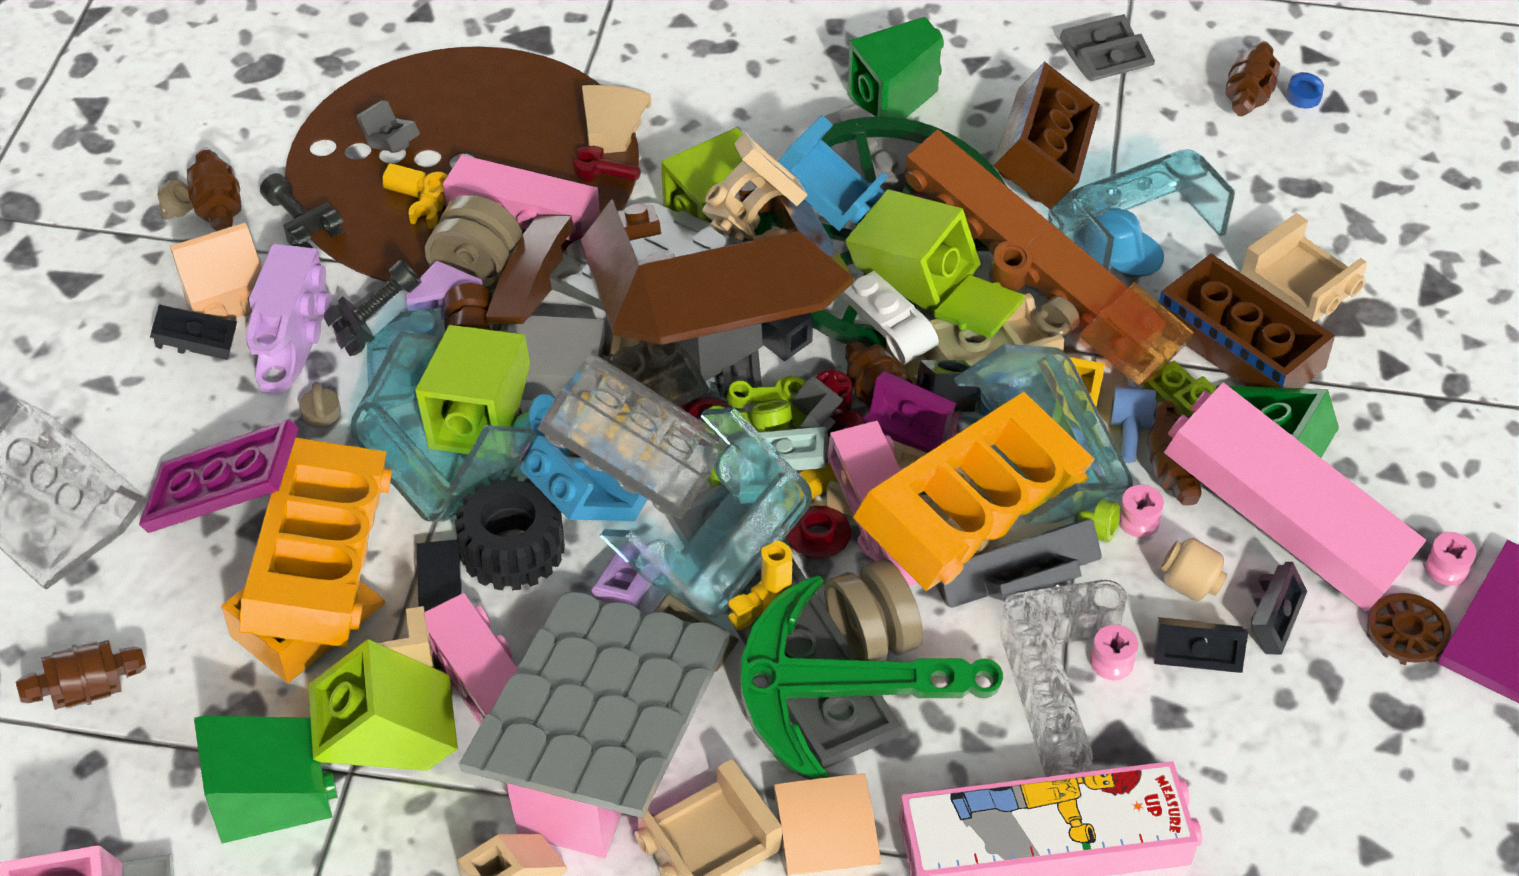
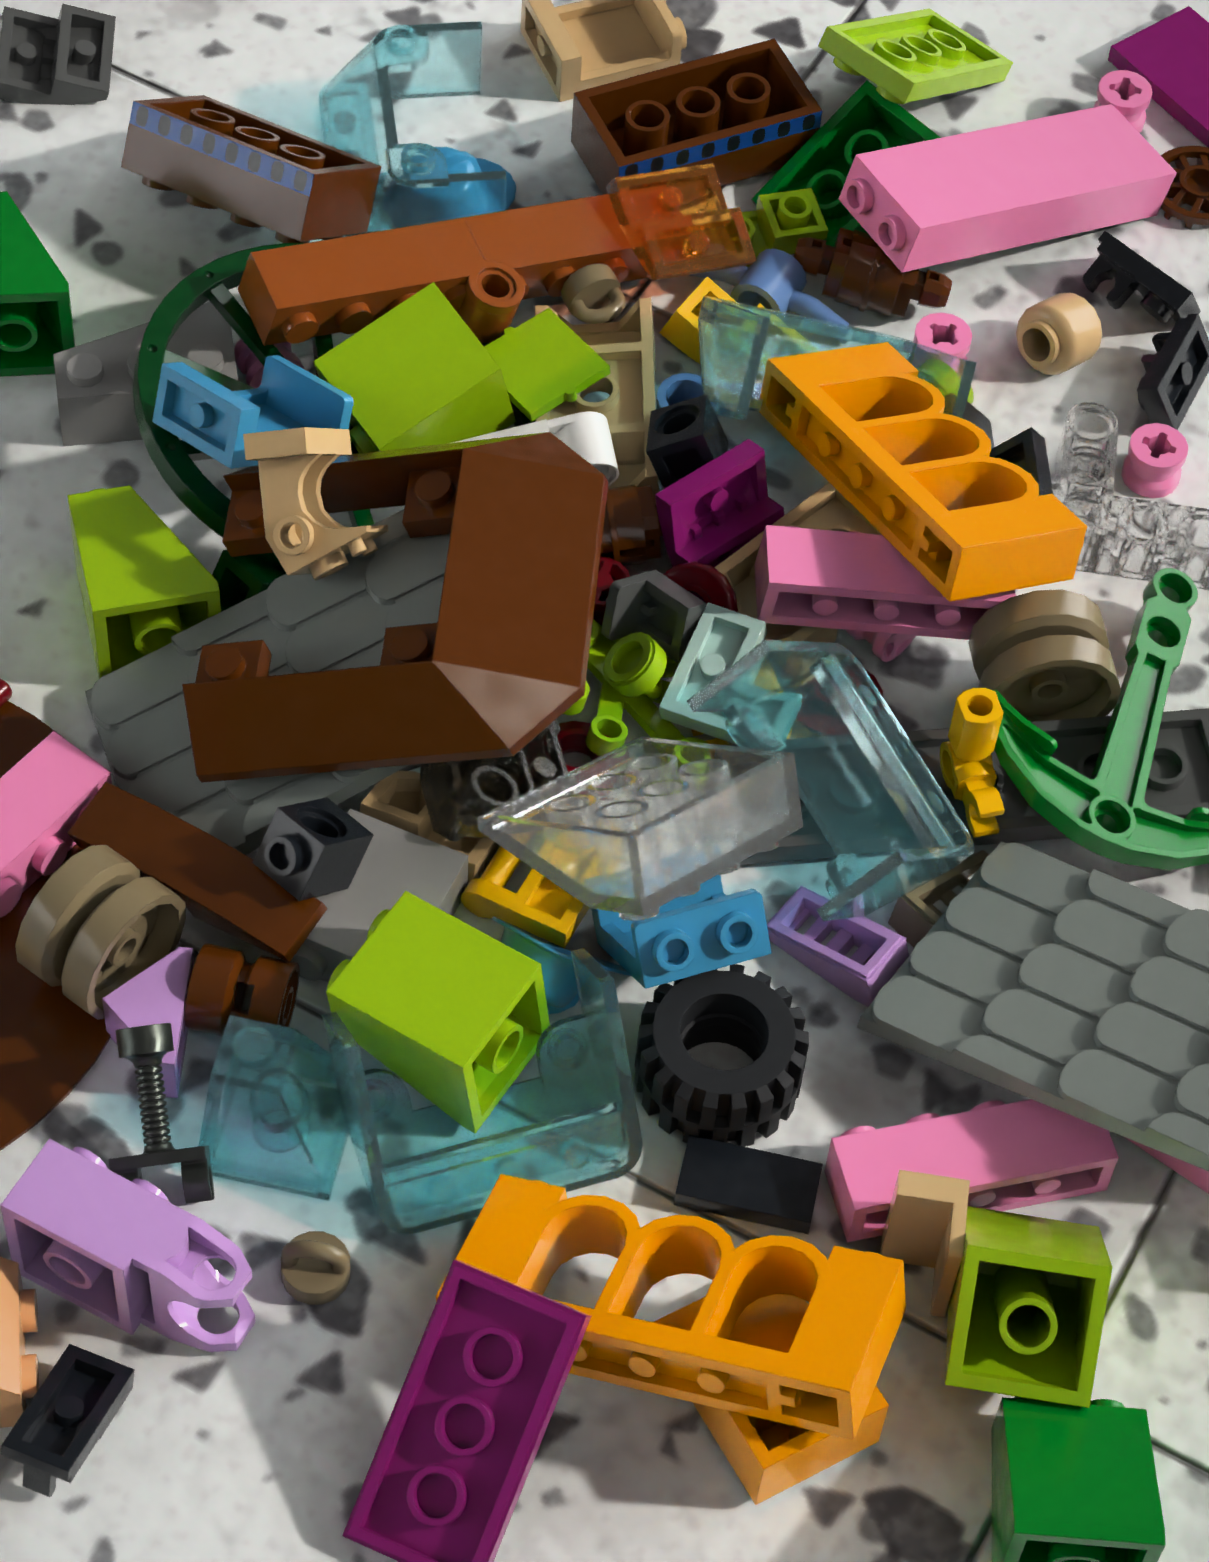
camera: 75 degrees left, 5 degrees up
(547, 296) = (312, 848): none -> black brick
(1384, 417) = (914, 55): none -> lime plate

